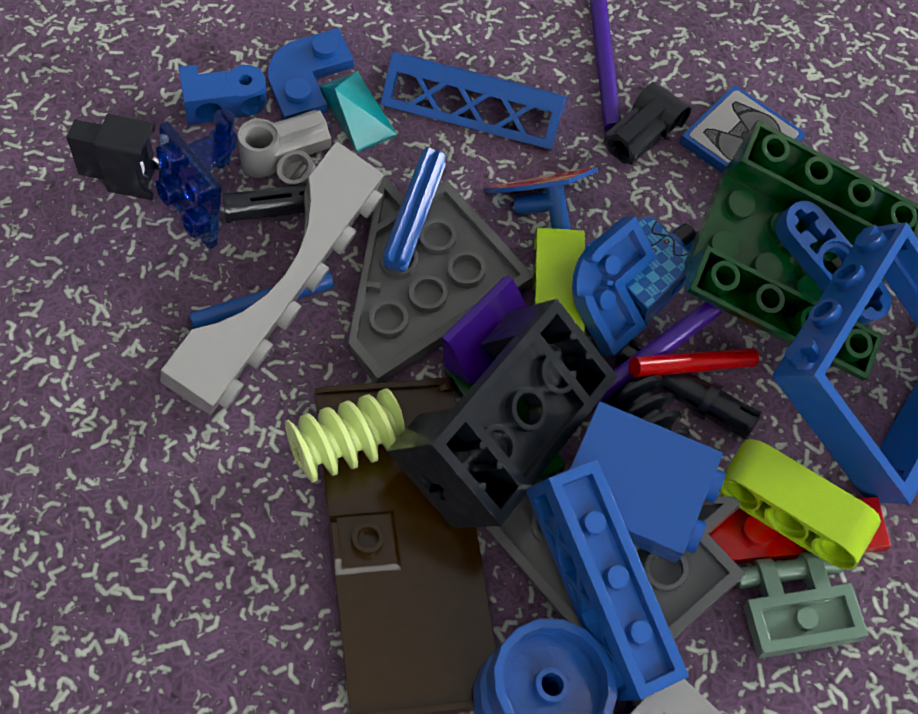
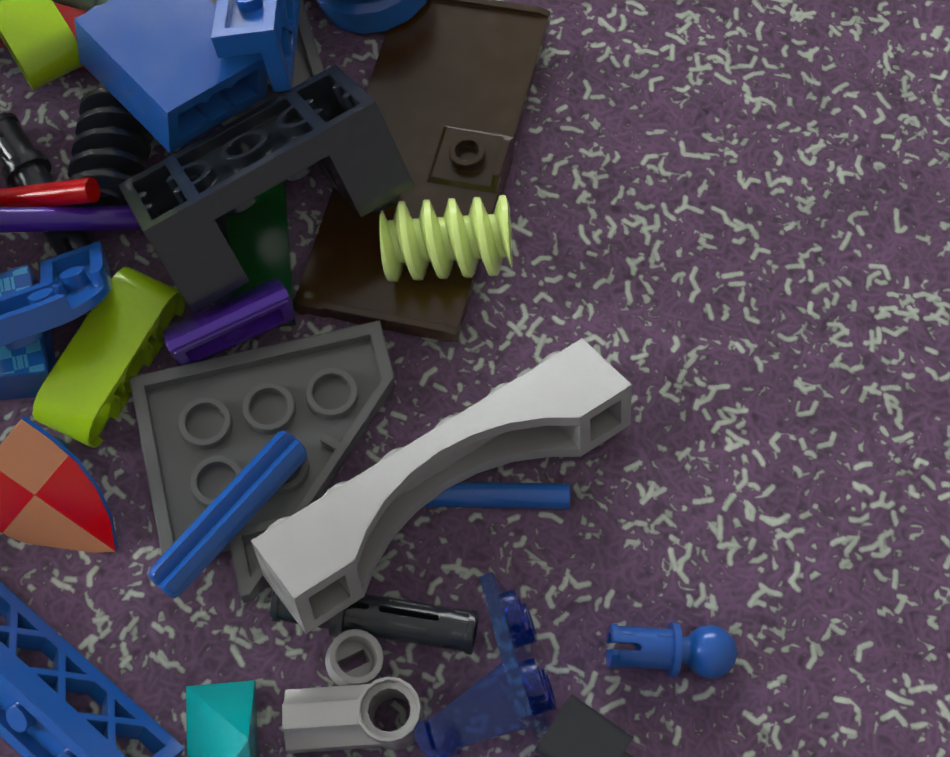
camera: 155 degrees left, 5 degrees up
(64, 254) = (706, 651): none -> blue pin

